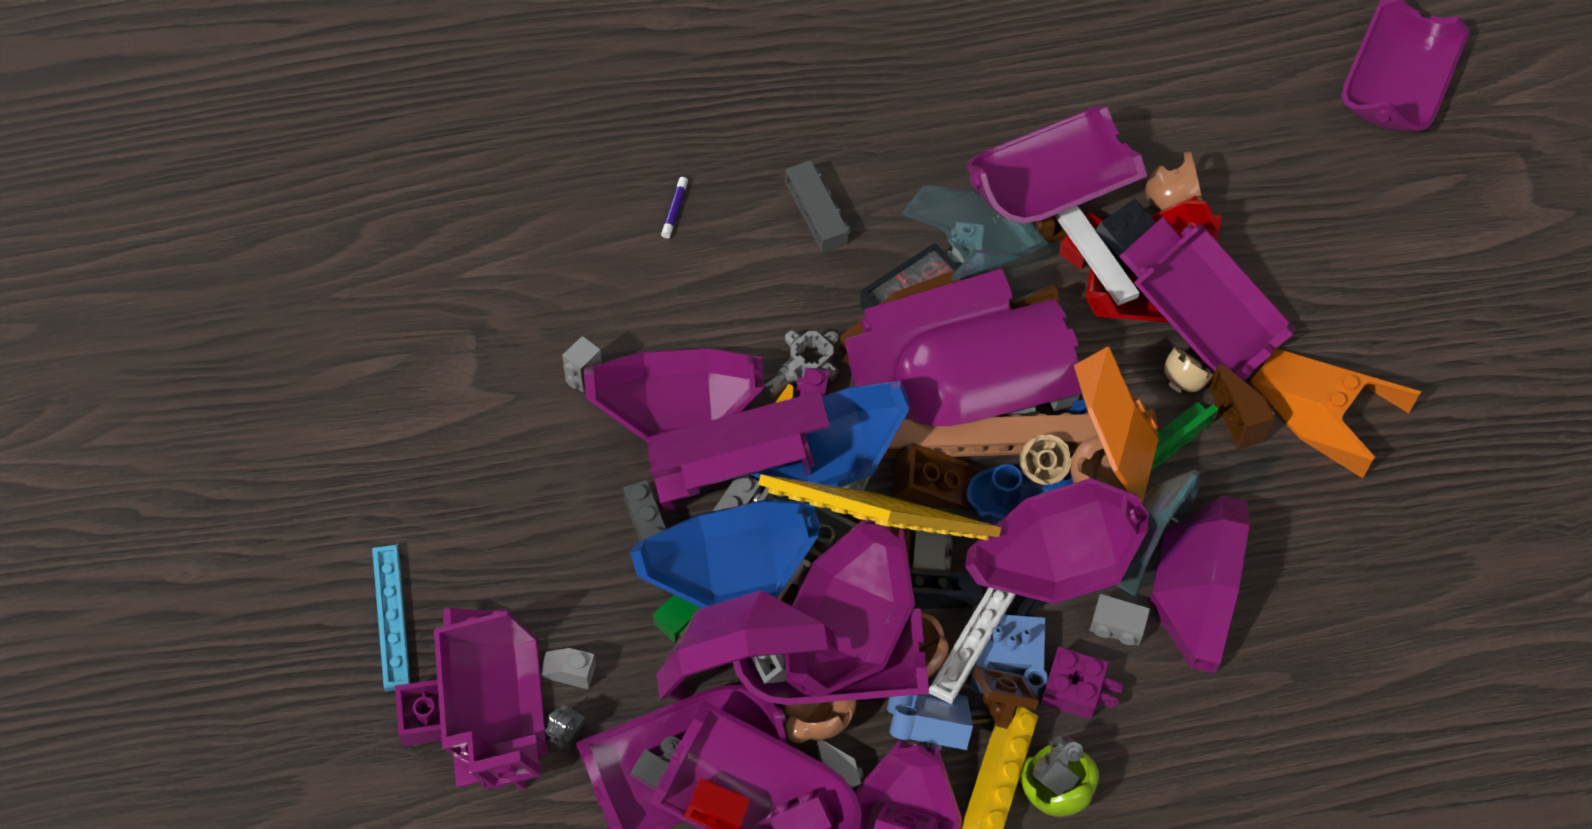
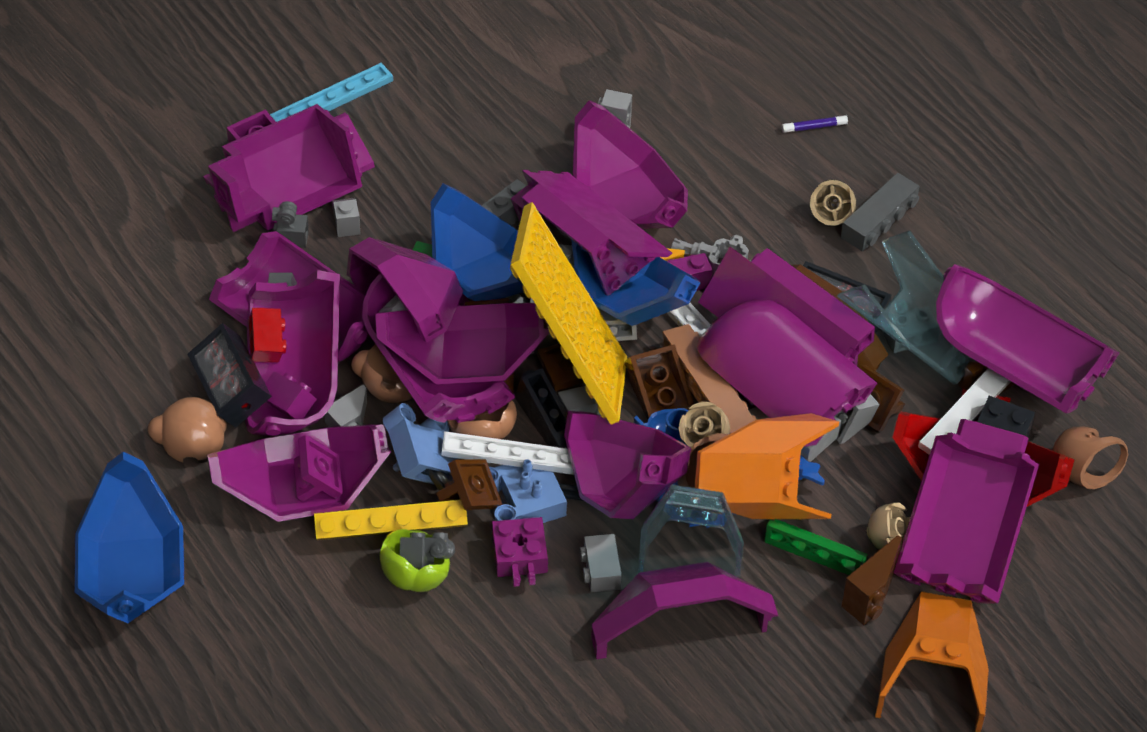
camera: 65 degrees right, 10 degrees down
(794, 236) = (822, 200): none -> tan cylinder

